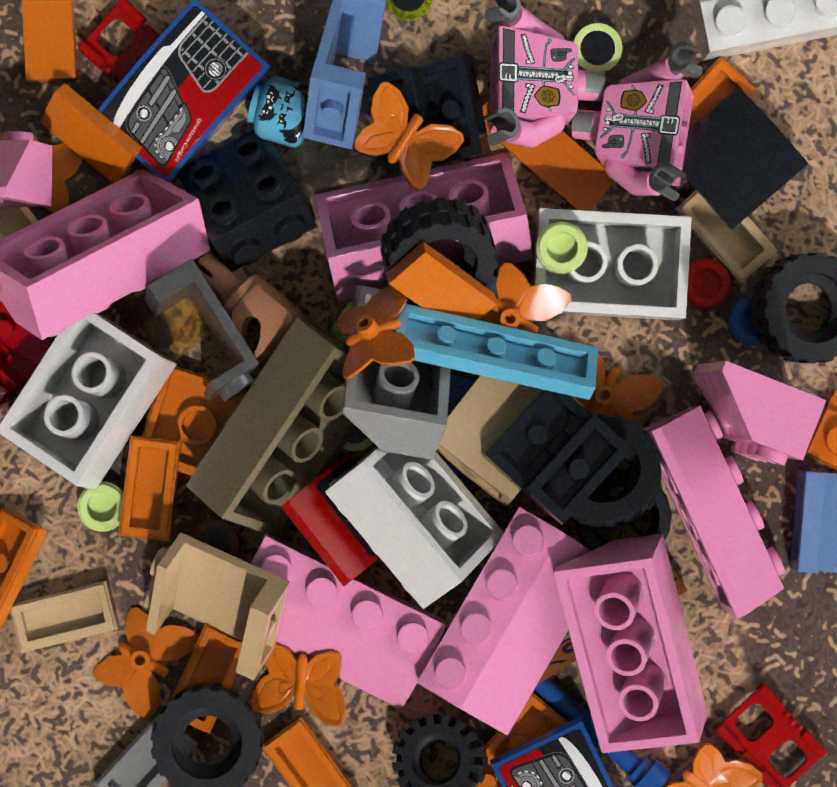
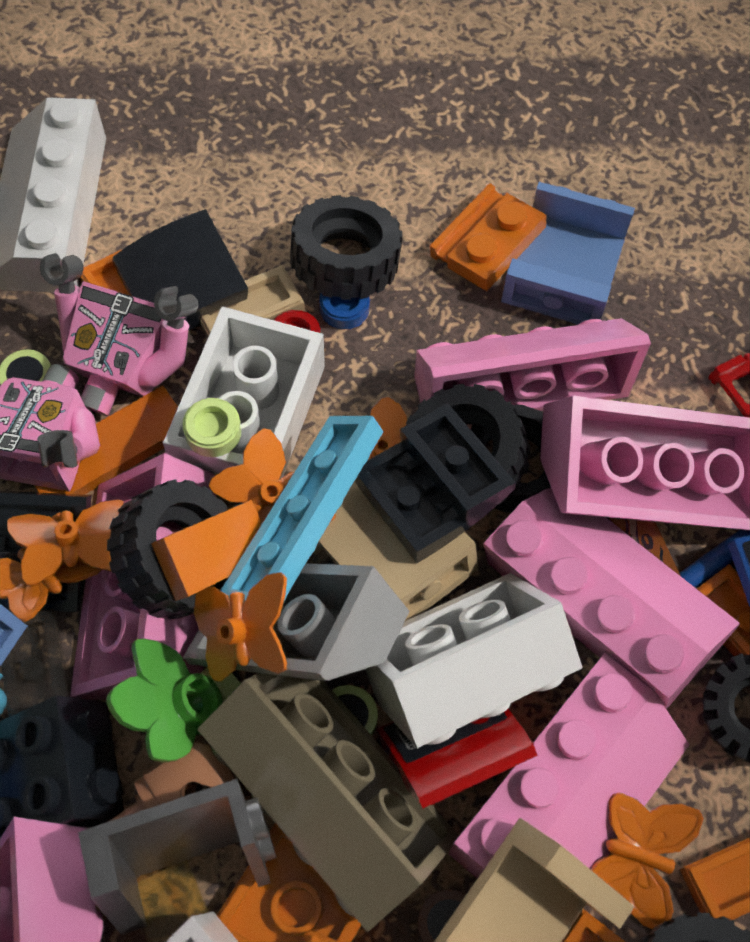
camera: 80 degrees left, 25 degrees down
(314, 284) = (163, 700): none -> bright green plate
(433, 155) = (53, 543): none -> orange piece
(759, 413) = (436, 269): bright pink slope -> none

